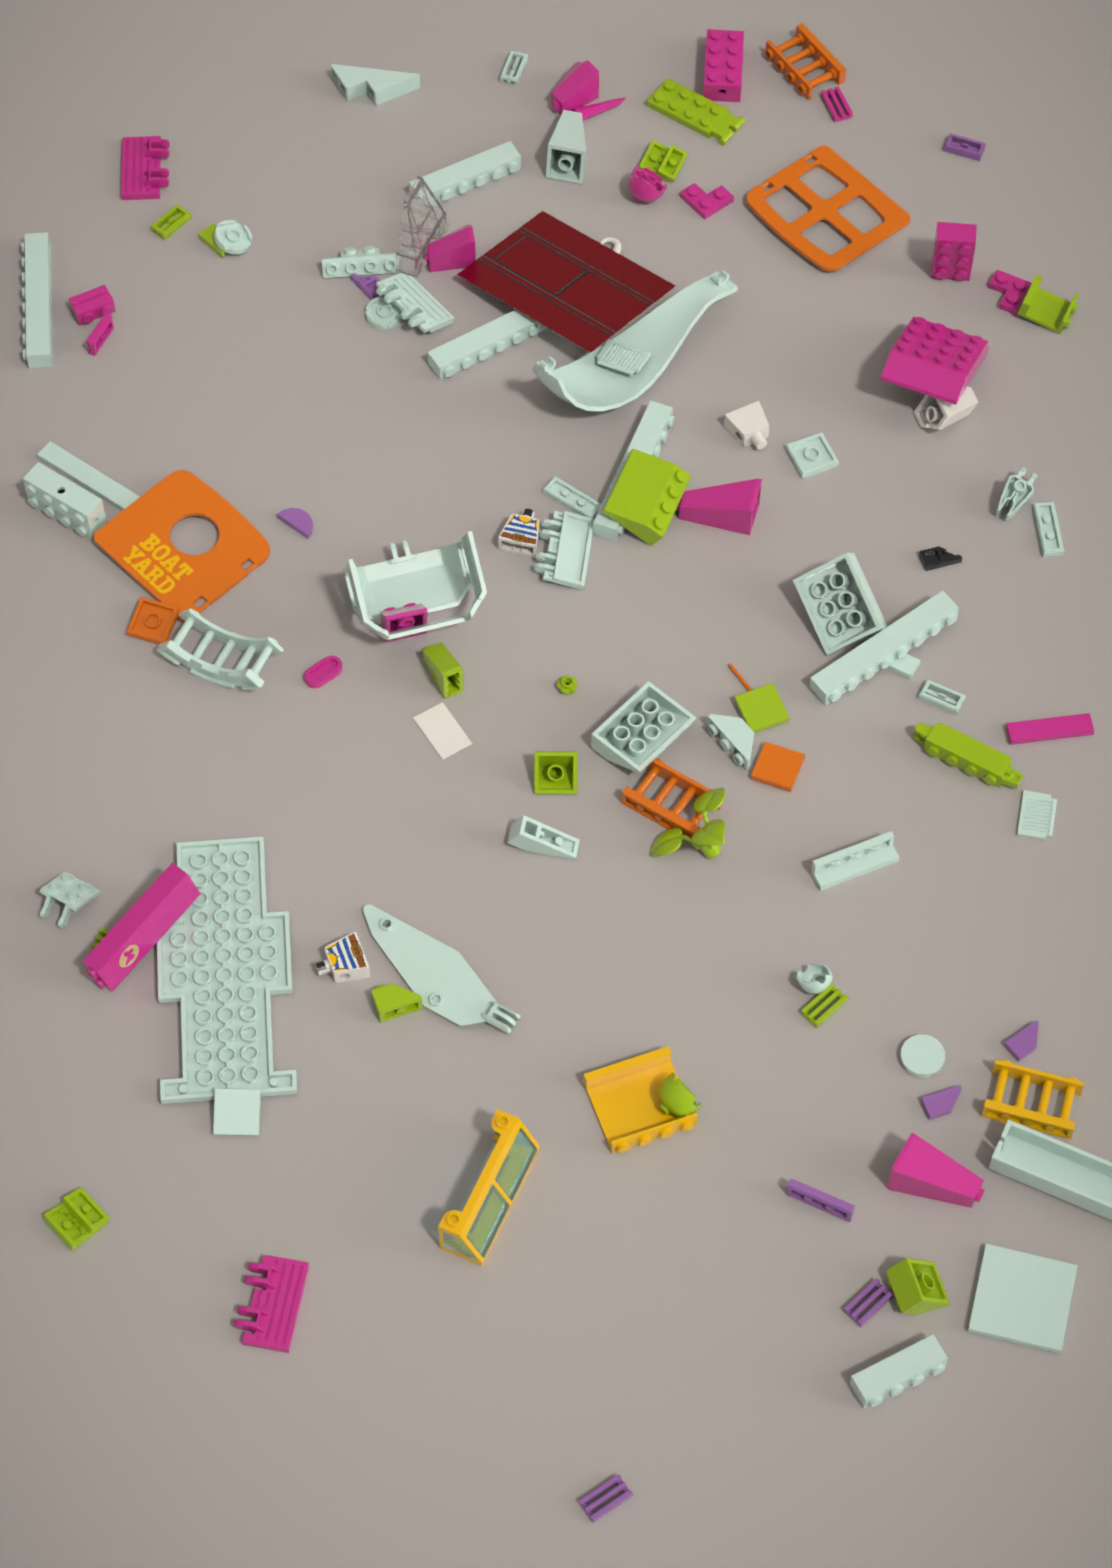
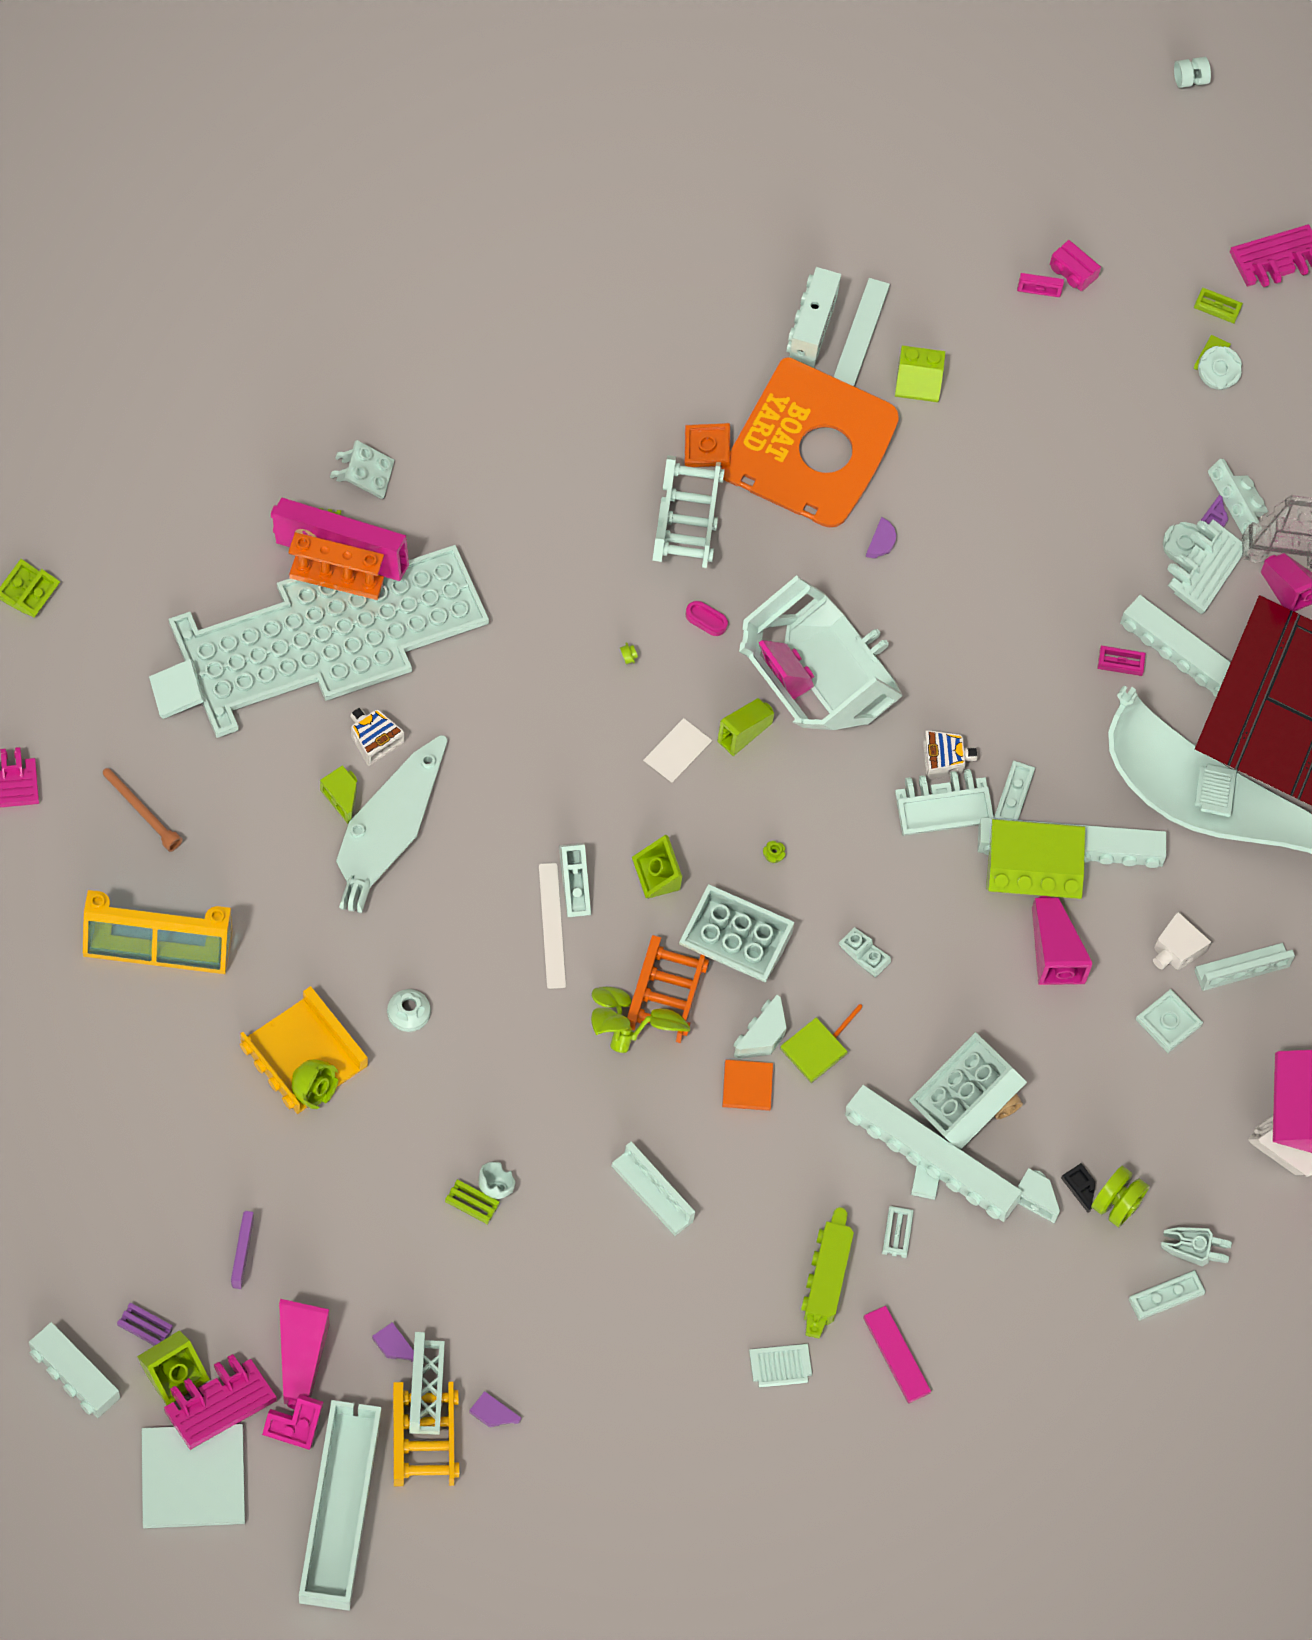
camera: 65 degrees right, 5 degrees up
(38, 300) = (1061, 215): light aqua brick -> none
(149, 444) = (920, 373): none -> lime slope
(171, 935) = (336, 566): none -> orange fence
(337, 738) = (629, 653): none -> lime plate
(389, 1158) = (169, 839): none -> nougat piece
(470, 400) = (1121, 664): none -> dark pink tile
(578, 873) = (552, 926): none -> white sticker
(623, 1015) = (408, 1020): none -> light aqua piece
(683, 647) = (863, 951): none -> light aqua slope
(781, 390) = (1243, 966): none -> light aqua fence
(922, 1056) = (443, 1313): light aqua tile -> none
(948, 582) = (1038, 1195): none -> light aqua slope
(963, 528) = (1124, 1199): none -> lime wheel
(963, 1257) = (219, 1406): none -> dark pink hinge
(992, 1086) = (417, 1380): none -> light aqua fence
(1004, 1197) = (295, 1429): none -> dark pink plate

